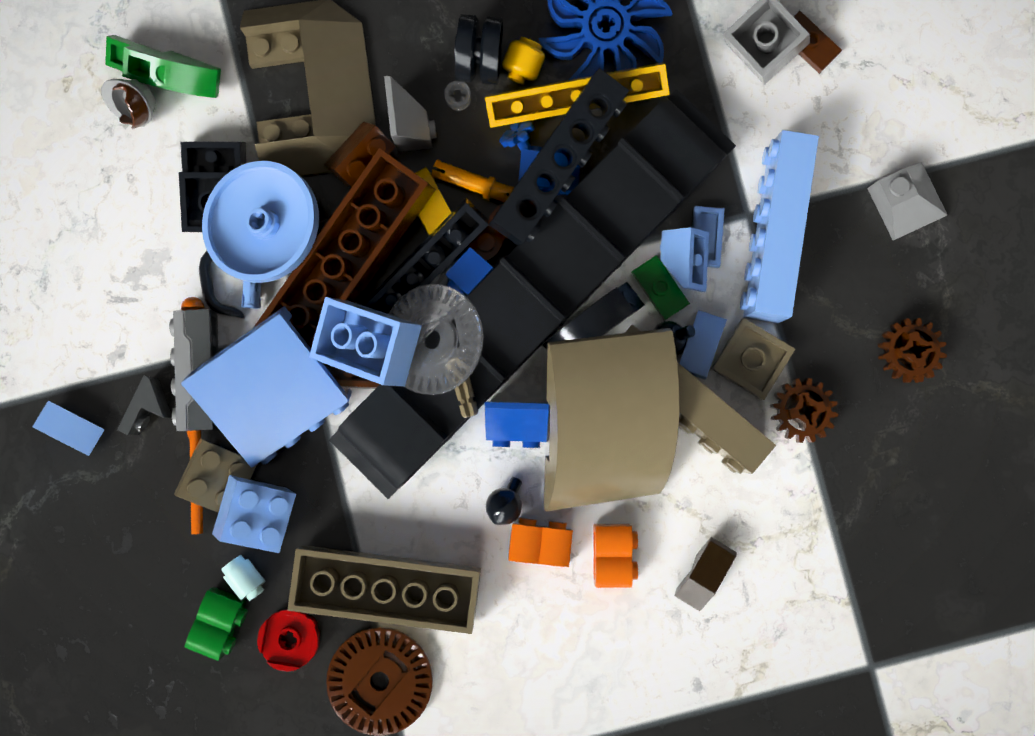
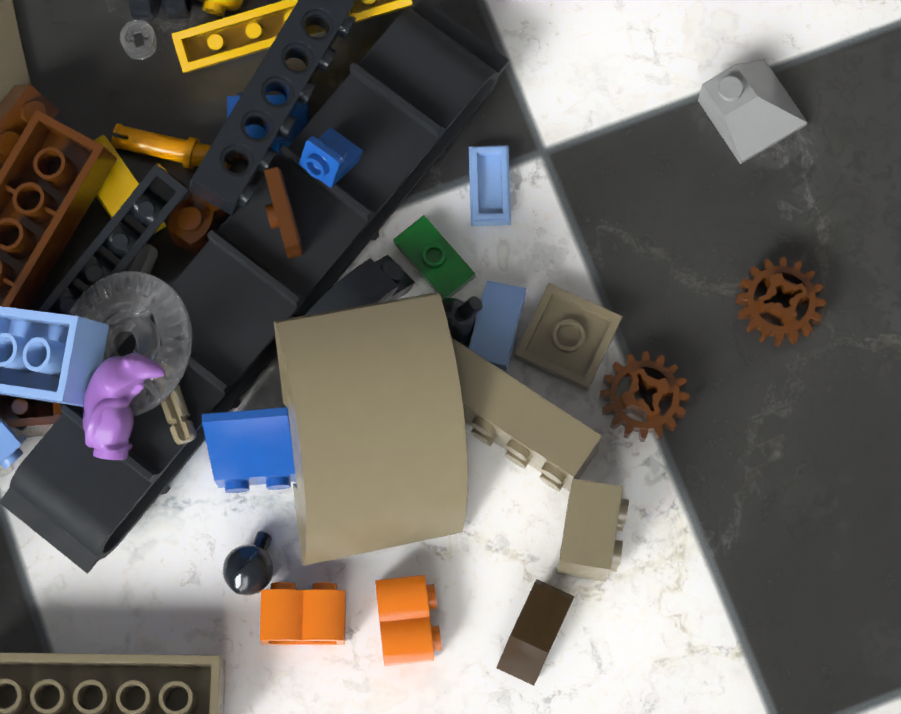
camera: 10 degrees left, 10 degrees down
(407, 119) = (73, 75): light grey slope -> none
(416, 384) = (107, 400): none -> medium lavender animal
(468, 272) = (168, 255): blue brick -> none
(518, 135) = (222, 81): blue plant -> none
(557, 250) = (281, 213): none -> reddish brown plate
(597, 211) = (329, 157): none -> blue bracket
(686, 256) = (461, 209): light blue slope -> none
(756, 509) = (590, 530): none -> dark tan brick
(780, 227) = (581, 153): light blue brick -> none

